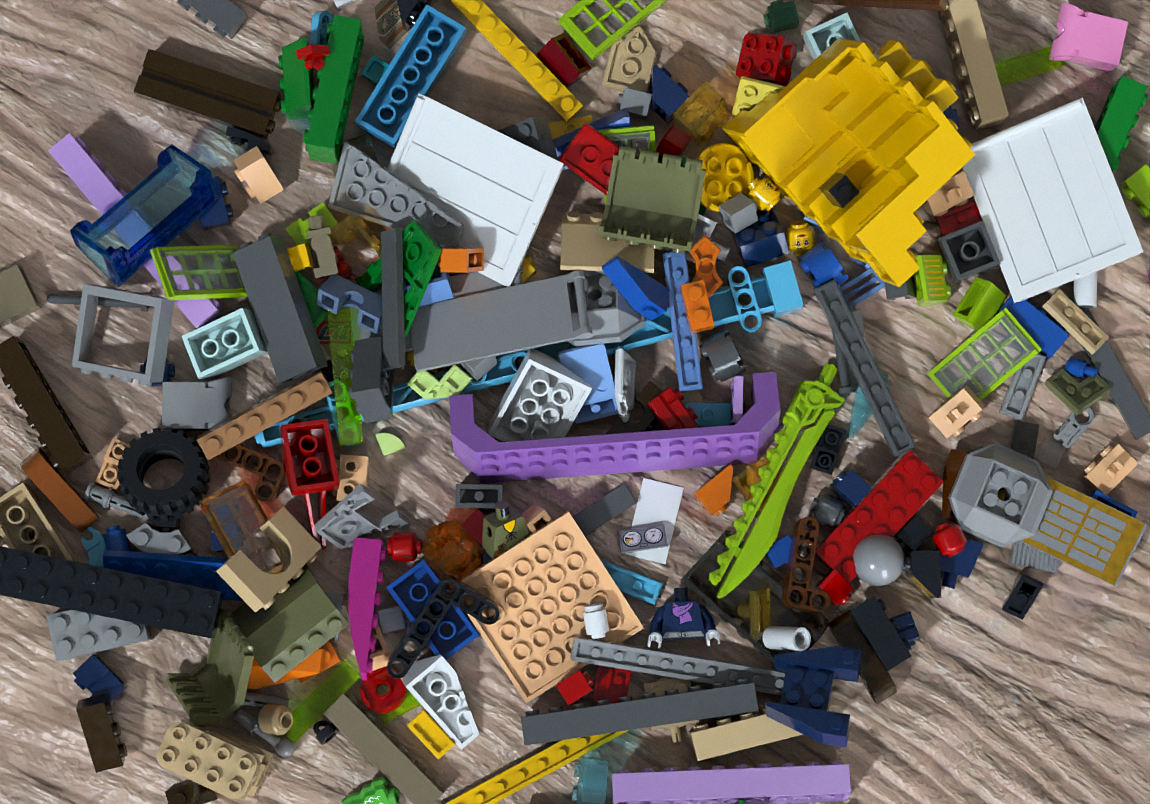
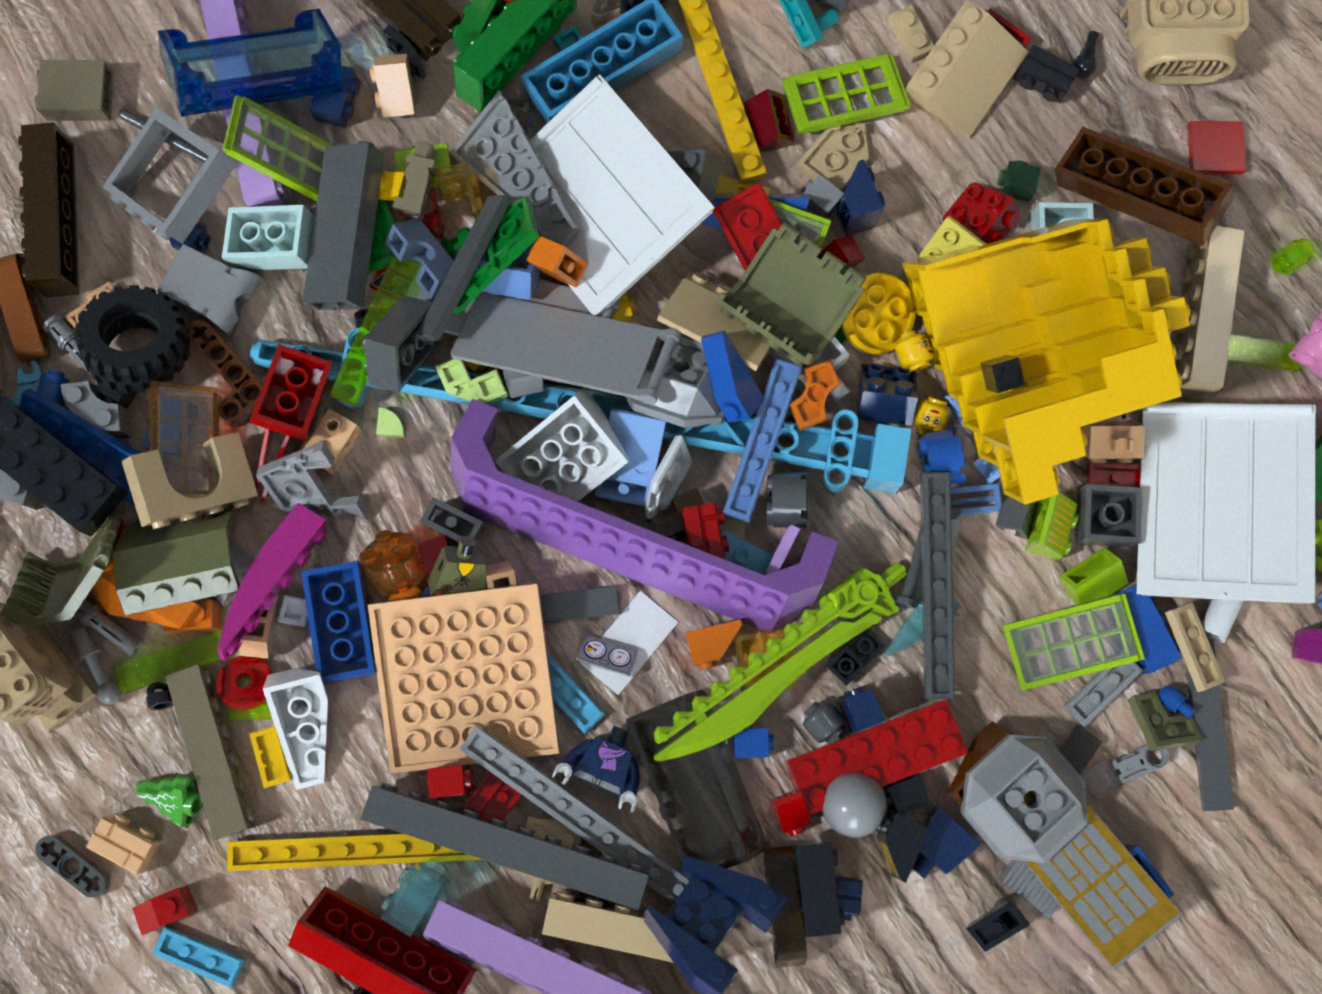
camera: 25 degrees right, 5 degrees down
(264, 414) = (267, 325): medium nougat brick -> none
(275, 719) = (111, 656): tan head -> none
(404, 546) = (347, 539): red head -> none
(434, 618) = (329, 628): black beam -> none
(596, 620) = (508, 718): white brick -> none
(697, 306) = (785, 429): orange brick -> none
(703, 113) = (889, 237): clear yellow bracket -> none
(738, 212) = (878, 356): light grey brick -> none
(757, 610) = (692, 797): clear yellow tile -> none
(786, 638) = (710, 843): white pin -> none
(806, 565) = (770, 771): reddish brown beam -> none
(949, 539) = (945, 820): red head -> none
(957, 411) = (1018, 683): light nougat brick -> none
(1109, 469) = (1161, 829): light nougat brick -> none

